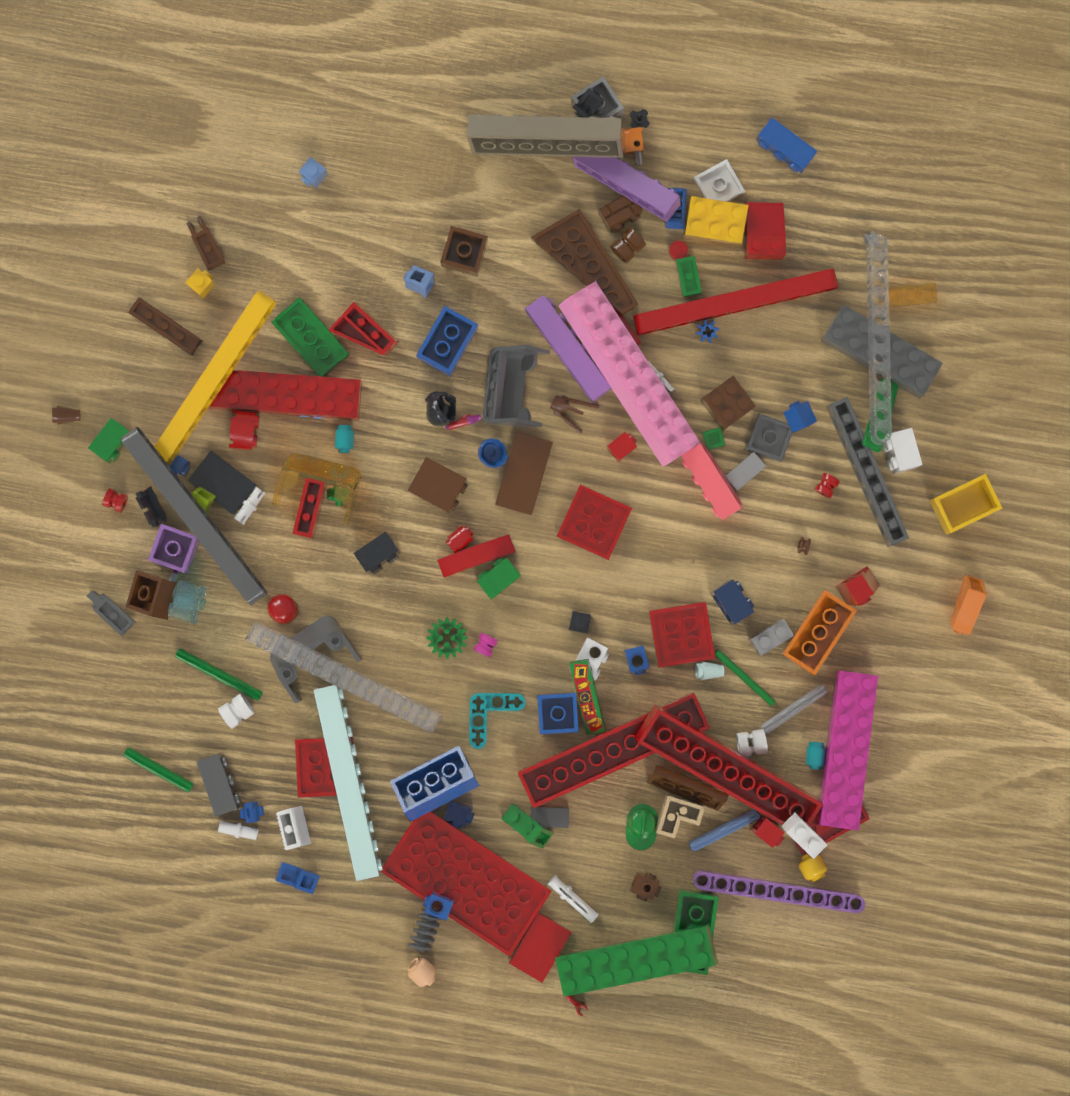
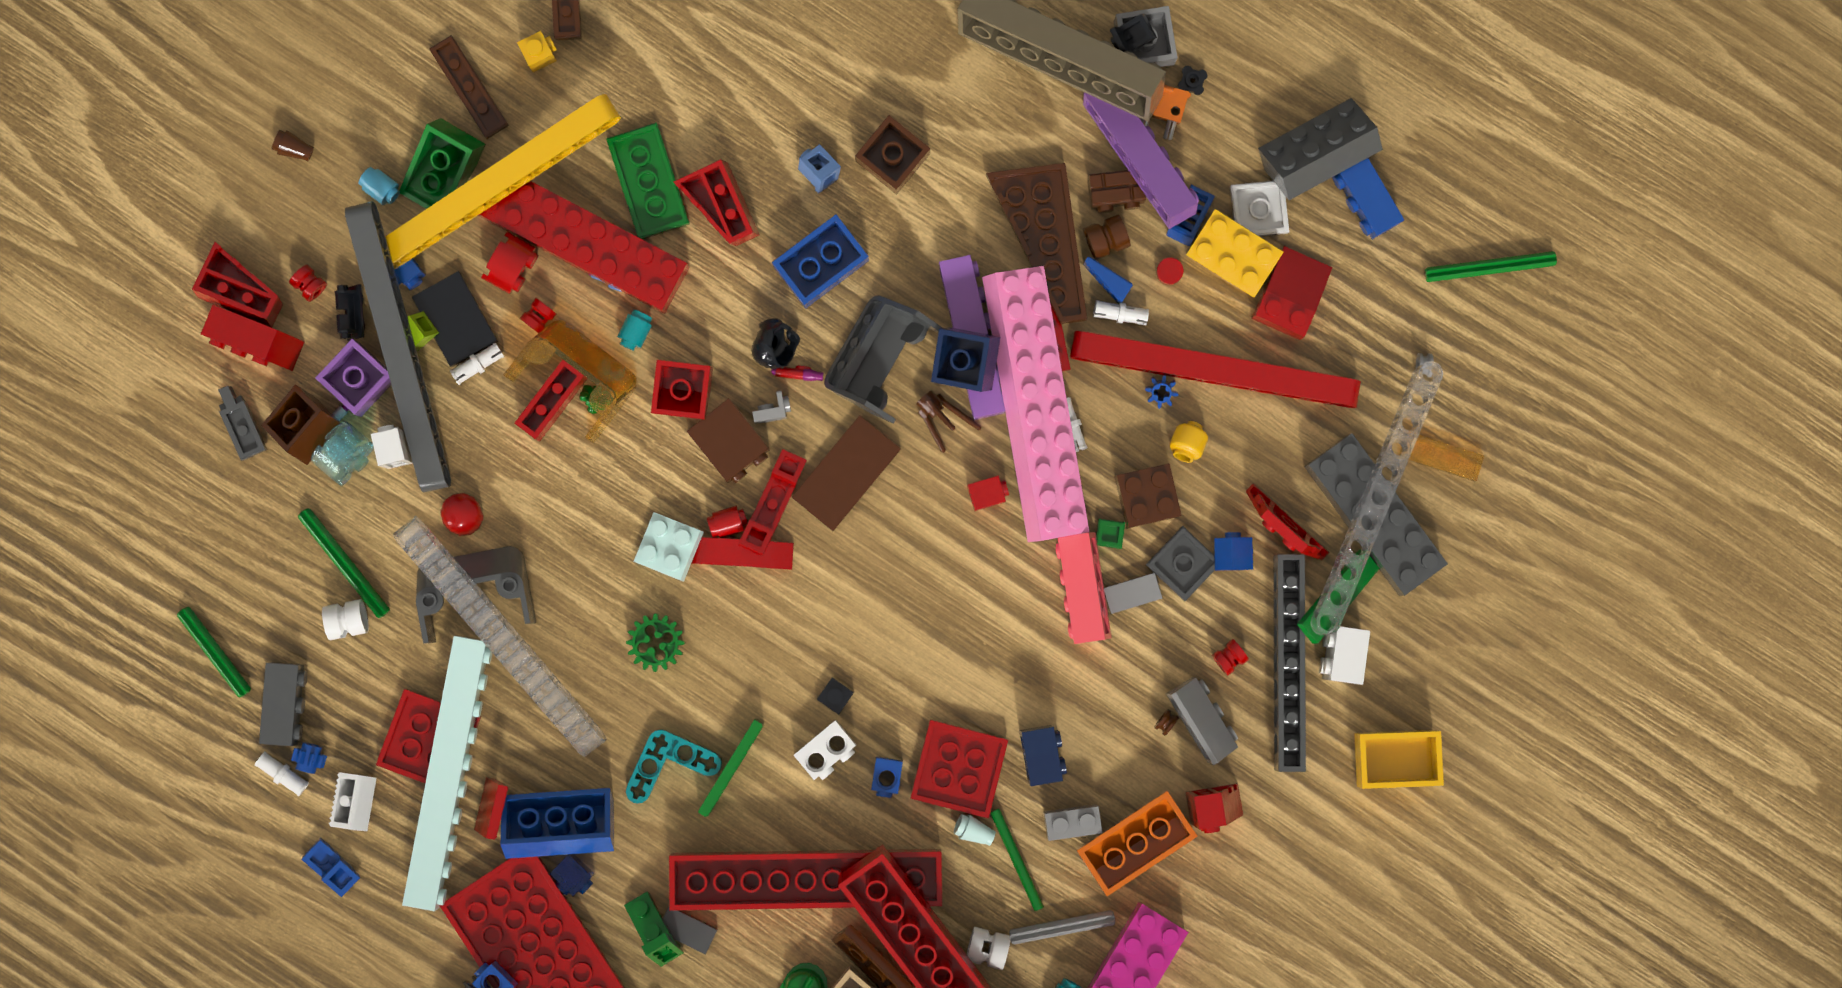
camera: 25 degrees right, 0 degrees up
(68, 524) = (234, 288): none -> red wedge
(94, 552) = (252, 338): none -> red wedge
(108, 441) = (329, 204): green brick -> none
(134, 416) = (379, 186): none -> medium azure brick
(168, 384) = (440, 163): none -> green slope
(218, 584) = (391, 447): none -> white brick
(276, 461) = (535, 321): none -> red wheel
(377, 553) = (612, 495): black brick -> none
(386, 792) = (491, 808): none -> red tile
(392, 464) = (681, 389): none -> red slope
(428, 571) = (668, 546): none -> light aqua plate
(456, 455) = (768, 413): none -> light grey bracket
(484, 512) = (773, 502): none -> red slope
(485, 645) = (701, 673): dark pink wheel -> none
(492, 453) = (816, 430): blue hair -> none
(498, 578) = (754, 594): green brick -> none
(532, 698) = (731, 768): none -> green tile
(557, 713) = (754, 801): blue brick -> none
(571, 364) = (965, 359): none -> dark blue brick
(587, 696) = (802, 796): tile -> none
(594, 522) = (909, 575): red plate -> none
(646, 274) = (1109, 280): none -> blue slope
(658, 291) = (1121, 313): none -> white pin
(688, 276) = (1168, 310): green plate -> none
(739, 356) = (1188, 441): none -> yellow head
(742, 127) = (1320, 148): none -> dark grey brick
(820, 382) = (1278, 520): none -> red wing
(827, 534) = (1203, 720): none -> light grey slope
(885, 158) = (1490, 266): none -> green axle
(968, 605) = (1345, 890): orange slope -> none

